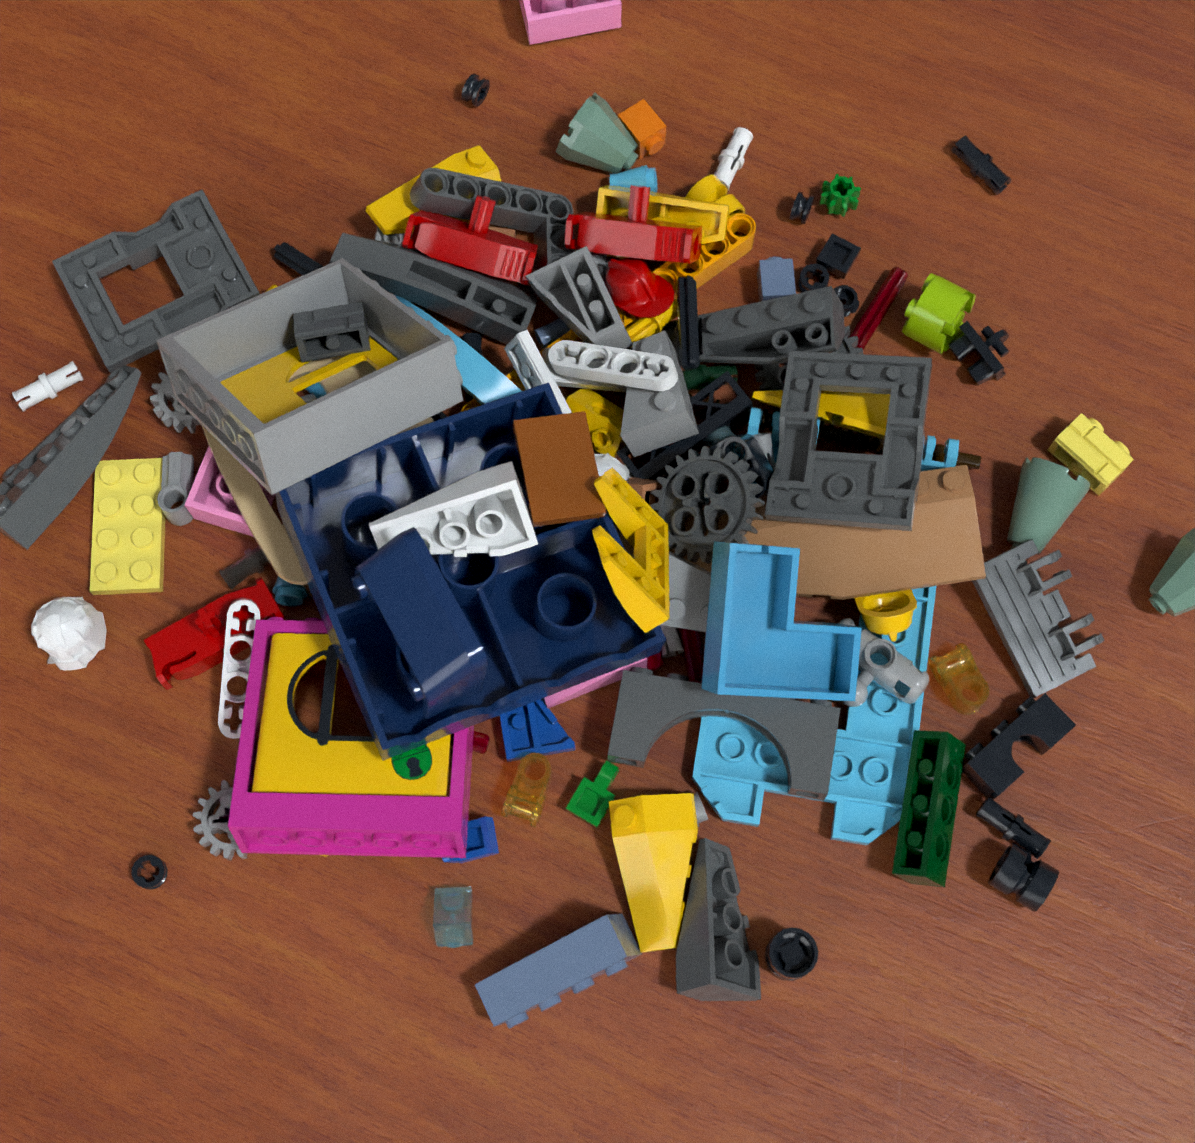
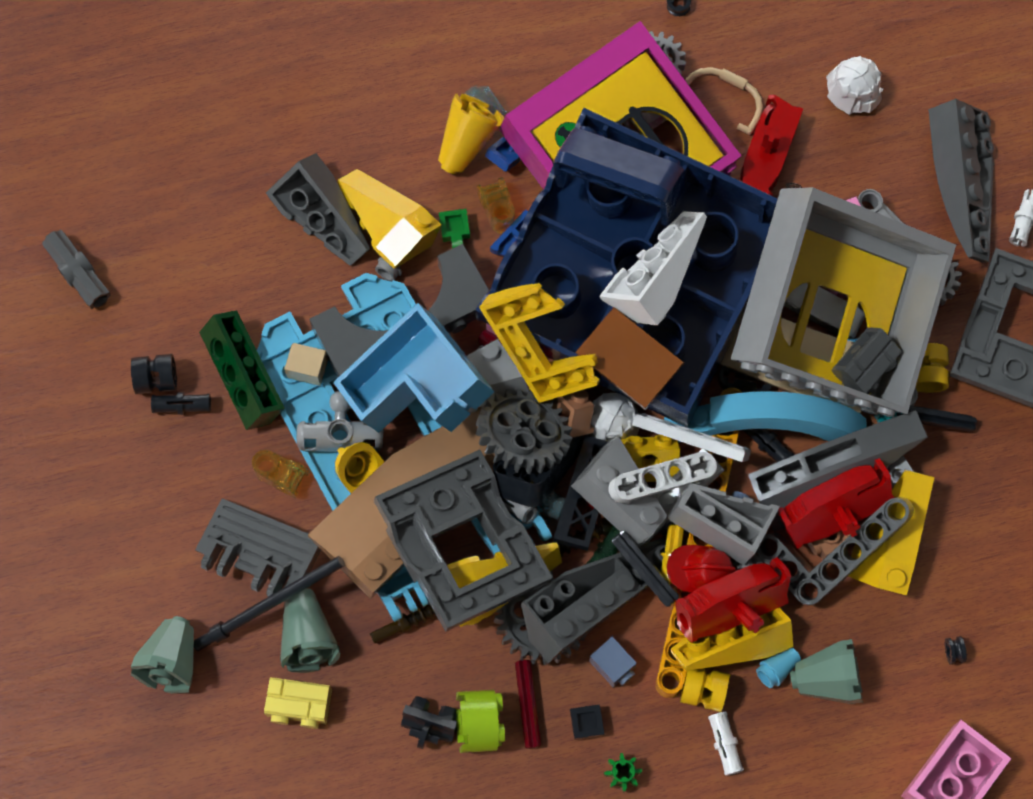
camera: 140 degrees right, 0 degrees up
(127, 528) = (880, 165): light yellow plate -> none
(173, 734) = (739, 82): none -> tan piece
(234, 667) = (737, 133): white beam -> none
(495, 884) = (467, 132): none -> yellow cone
(558, 968) = (393, 120): sand blue wedge -> none
(644, 127) = (808, 712): orange brick -> none
(791, 954) = (265, 224): black wheel -> none
(801, 207) = (642, 741): black bush -> none
(809, 272) = (582, 686): black bush -> none
(850, 296) = (556, 682): black plate -> none
(861, 755) = (306, 364): none -> tan panel
(1031, 1070) = (76, 269): none -> dark grey piece
(1039, 724) = (209, 479): black arch -> none
(1121, 566) = (222, 630): none -> black bar

